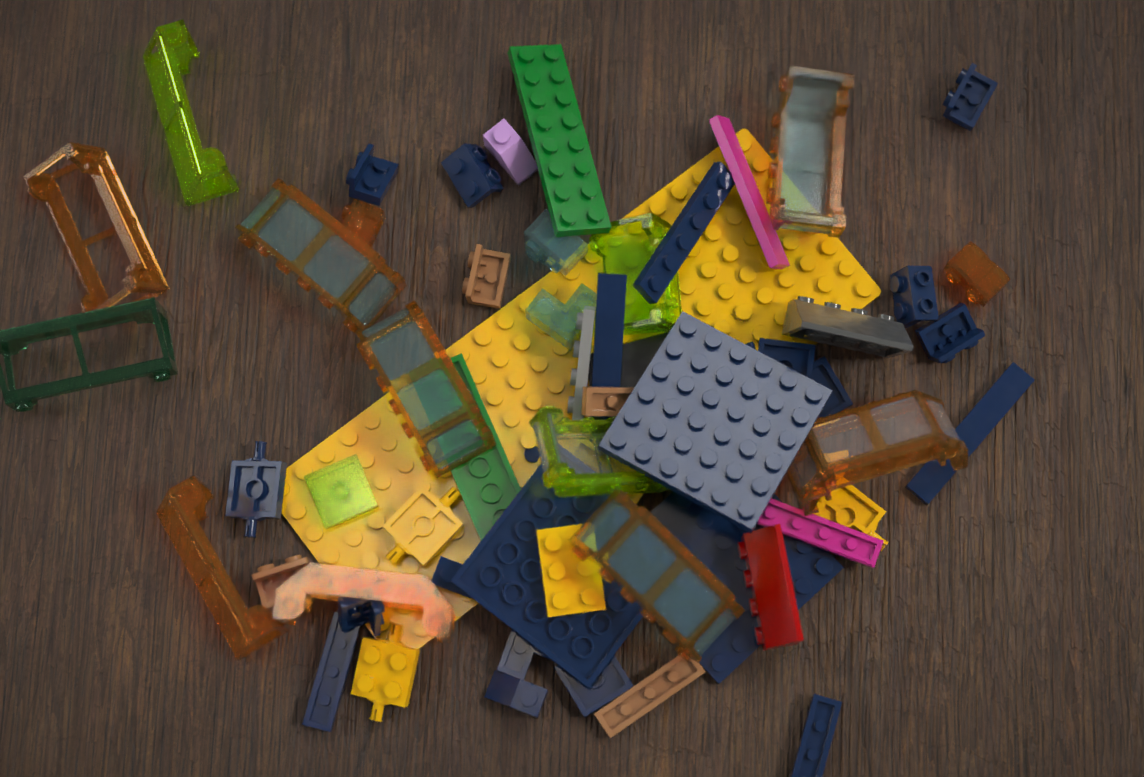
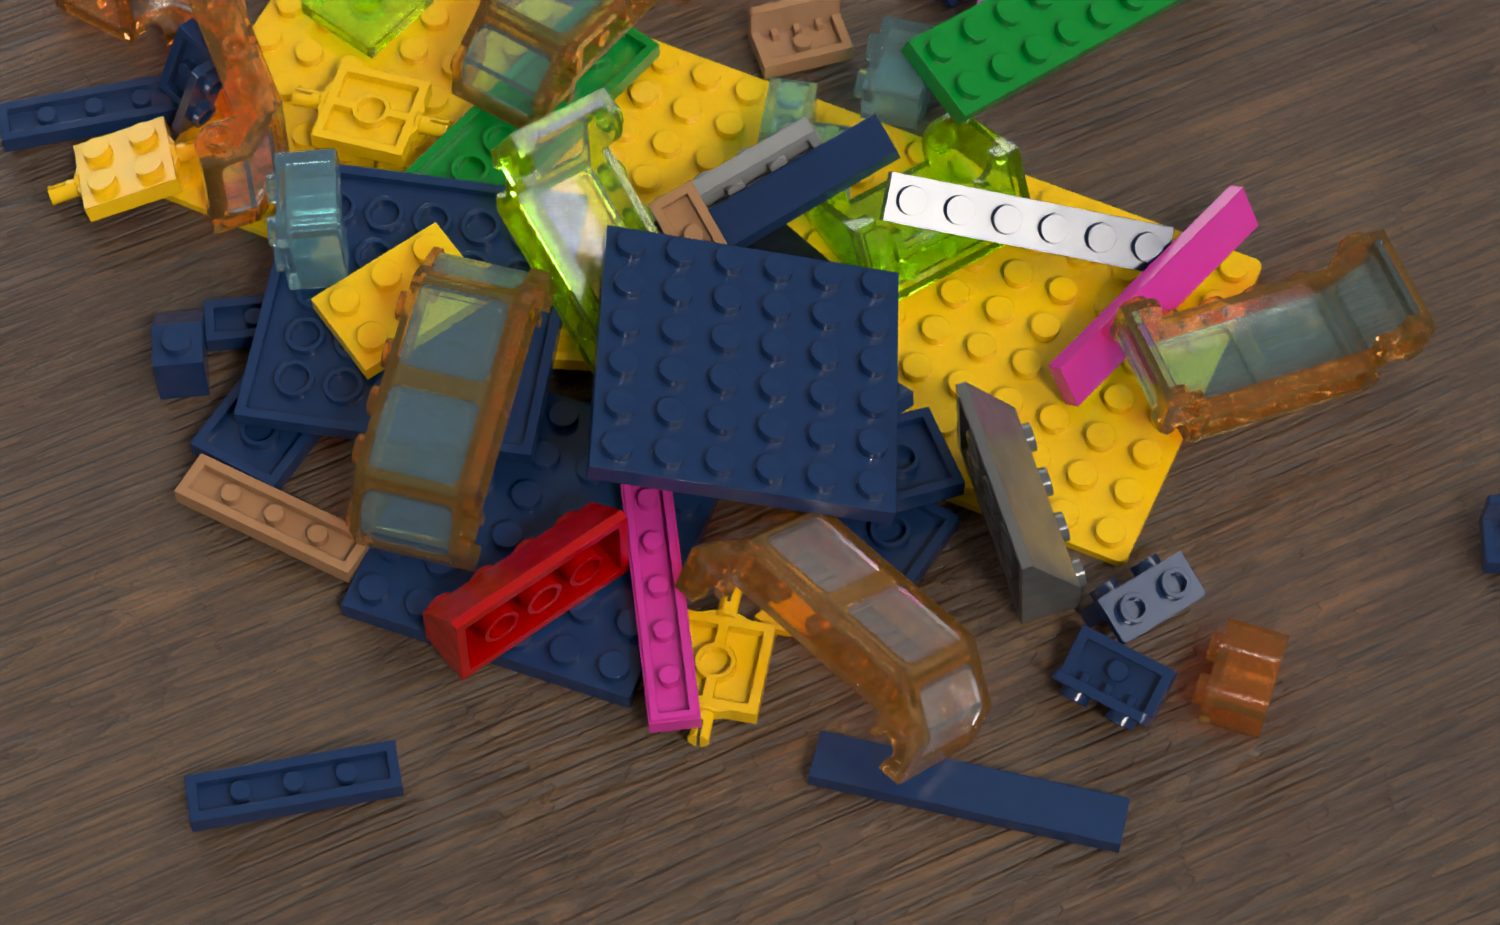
camera: 60 degrees right, 20 degrees down
(510, 595) = (308, 219): none -> clear light blue brick

